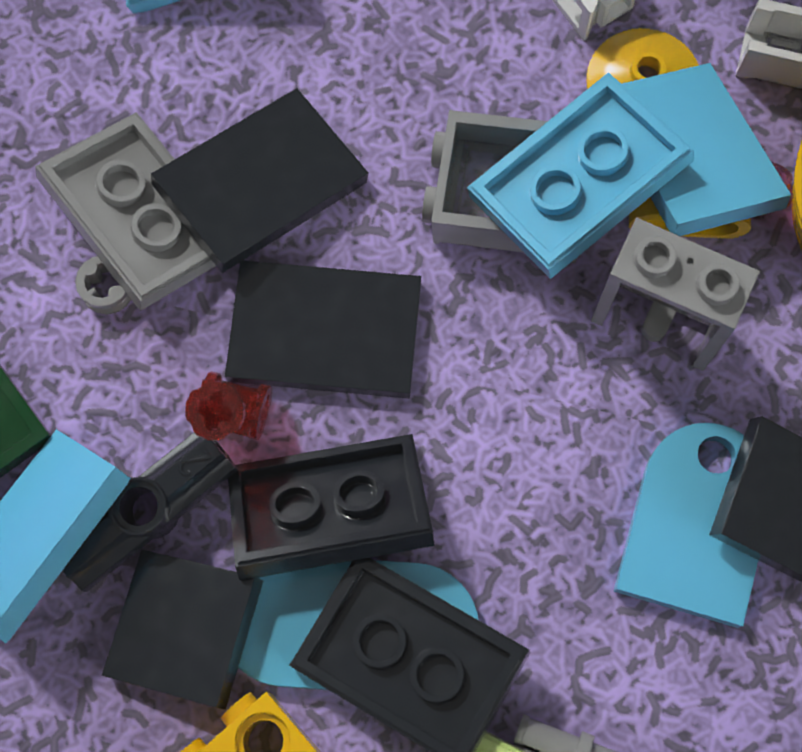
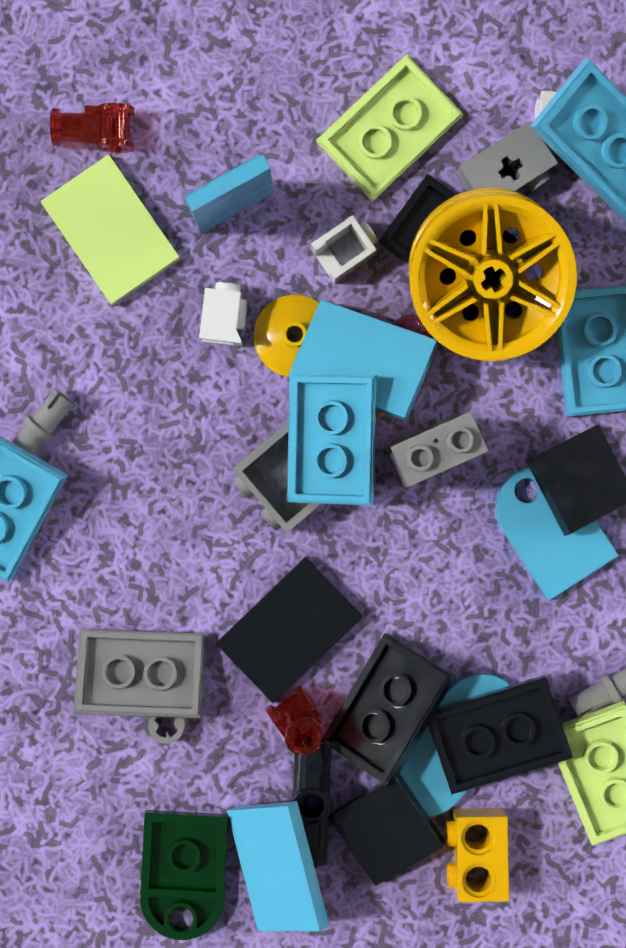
camera: 50 degrees left, 15 degrees up
(259, 179) = (178, 596): black tile -> none

